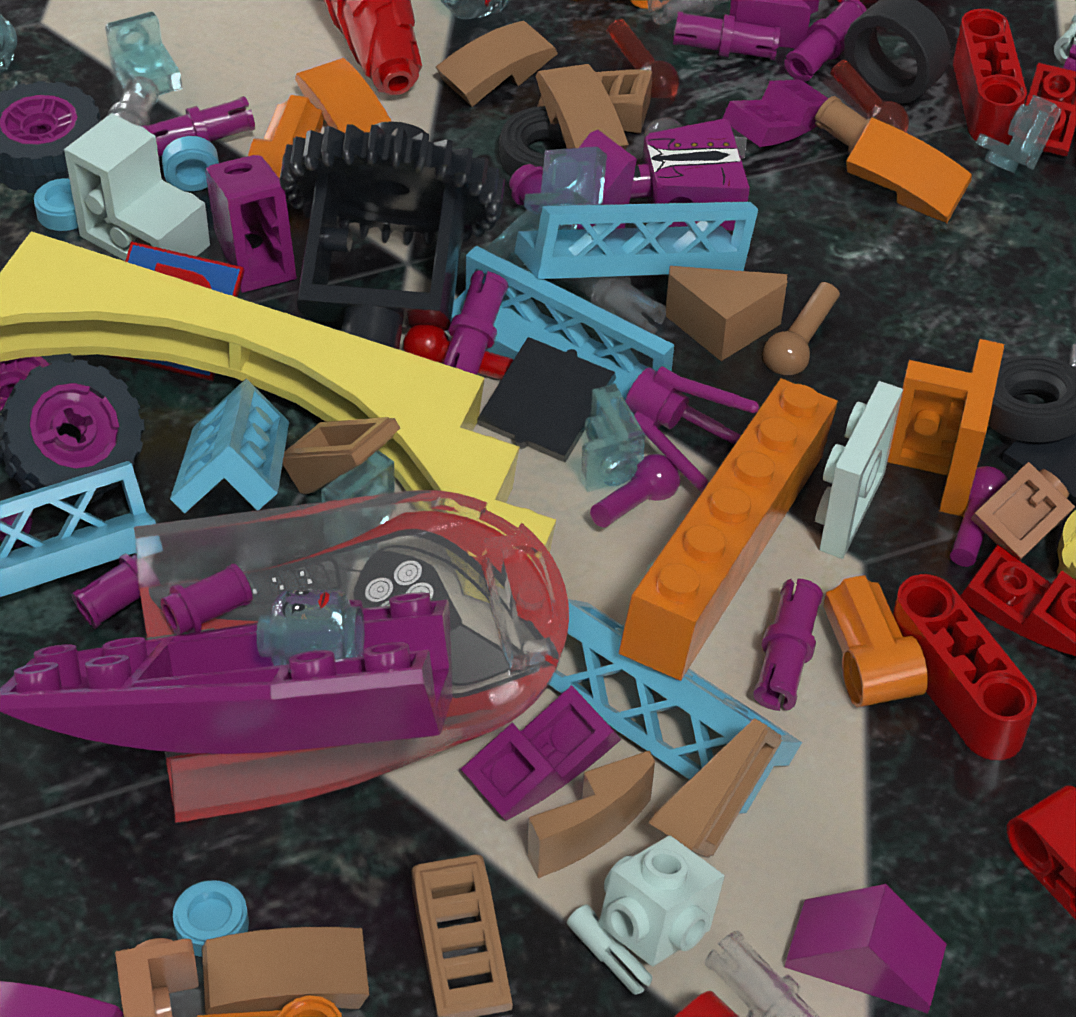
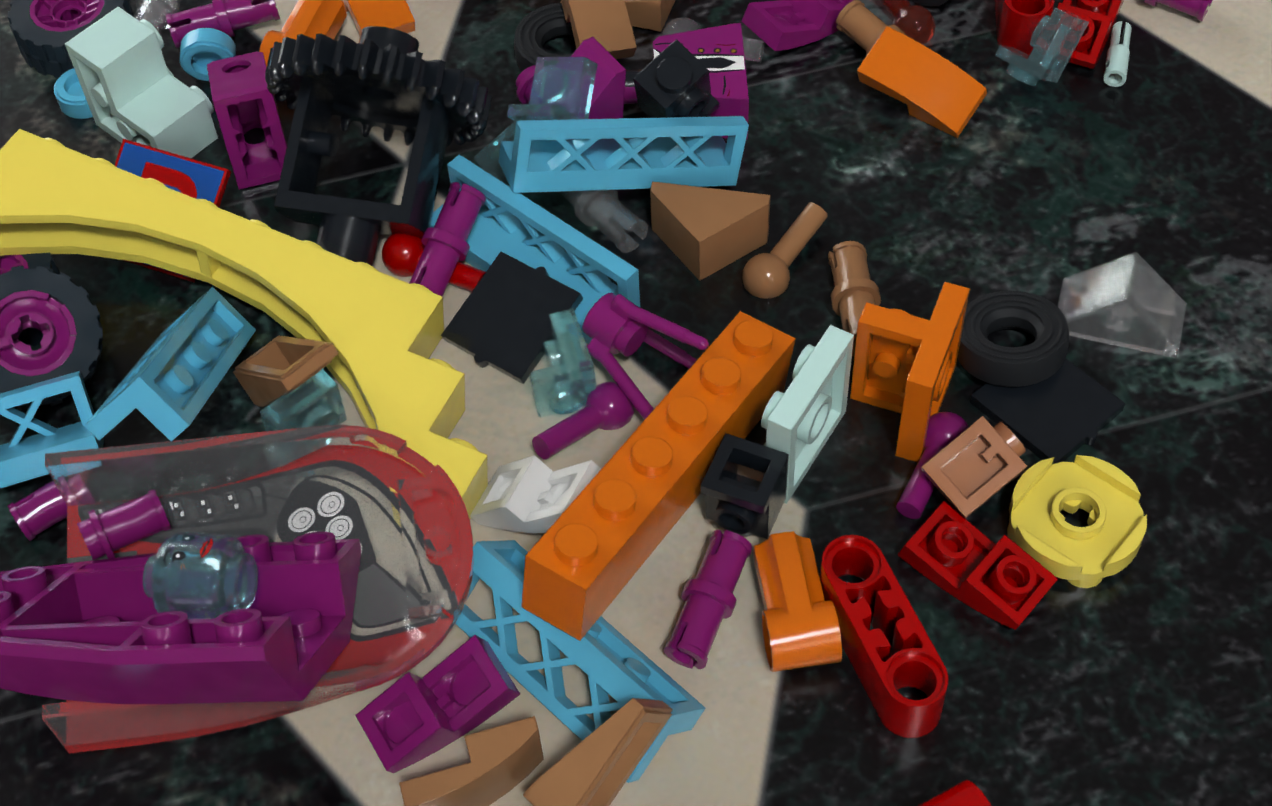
camera: 10 degrees right, 5 degrees up
(601, 562) = (530, 495): none -> white slope
(682, 174) = (675, 85): none -> black brick
(806, 552) = (739, 501): none -> black brick
(873, 354) = (851, 284): none -> medium nougat pin

